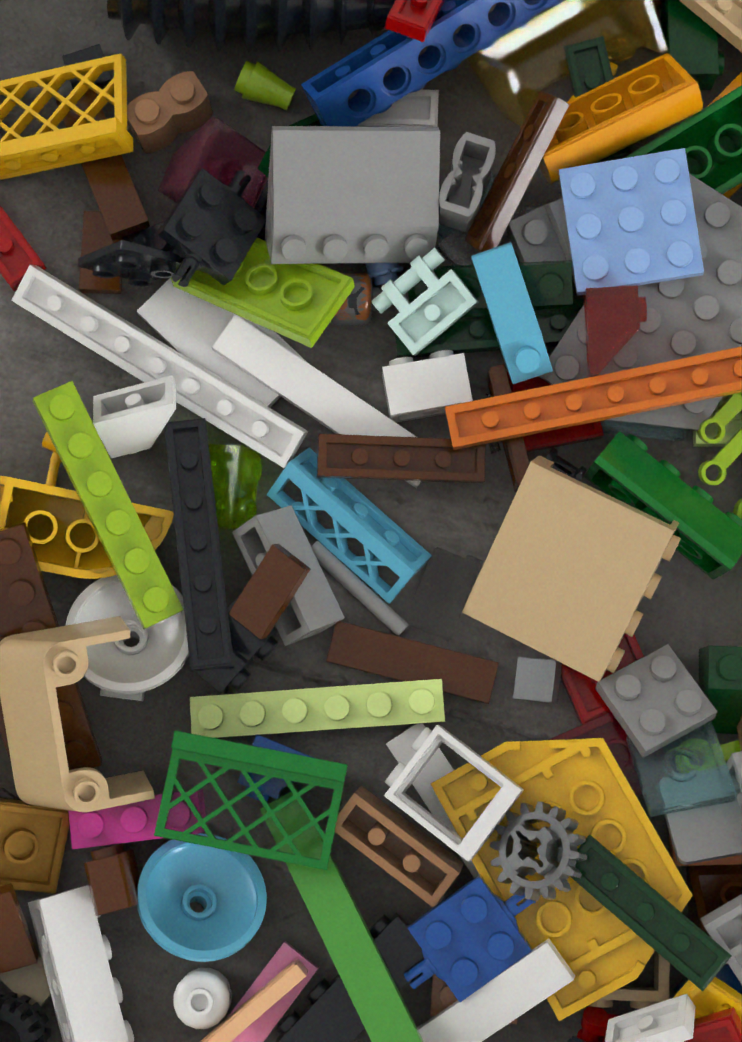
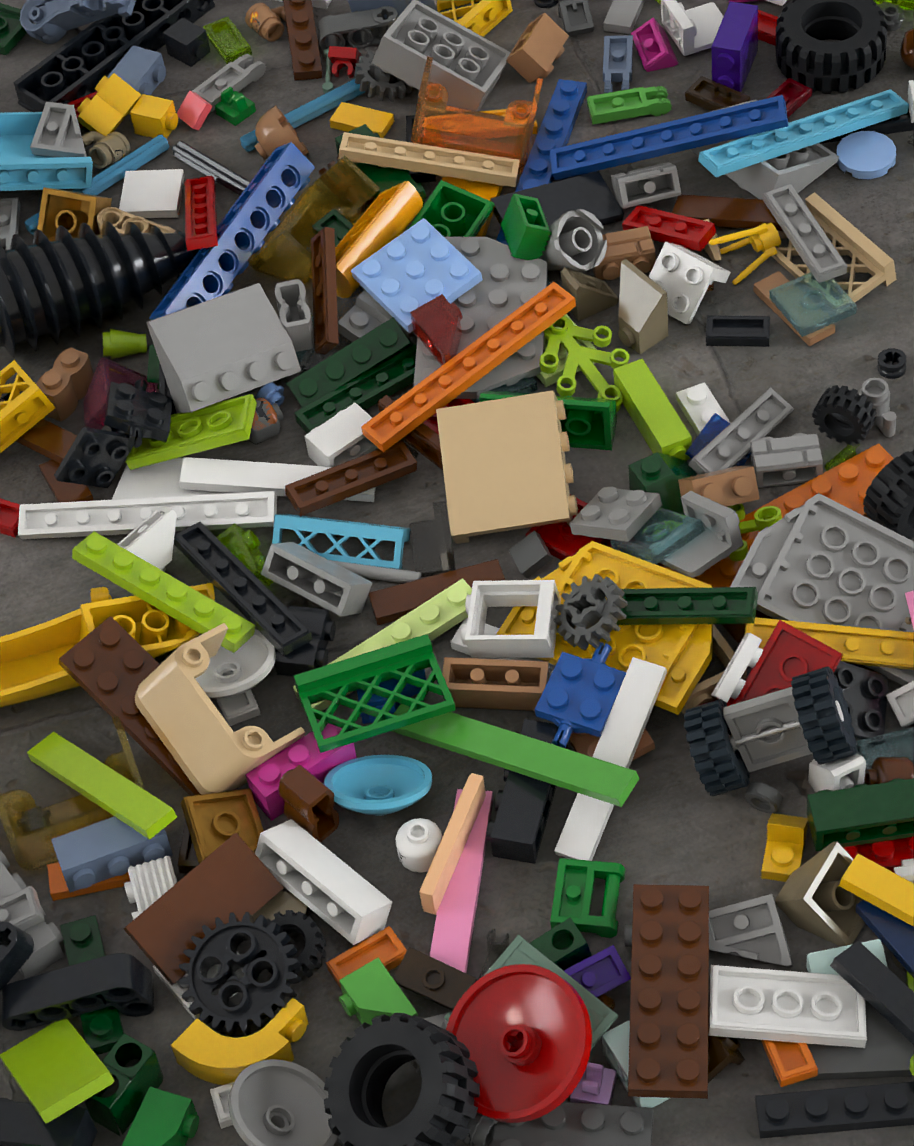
camera: 25 degrees left, 30 degrees down
(269, 591) = (308, 577): reddish brown tile -> none
(433, 310) = (317, 390): light aqua plate -> none
(511, 313) = (372, 360): medium azure slope -> none

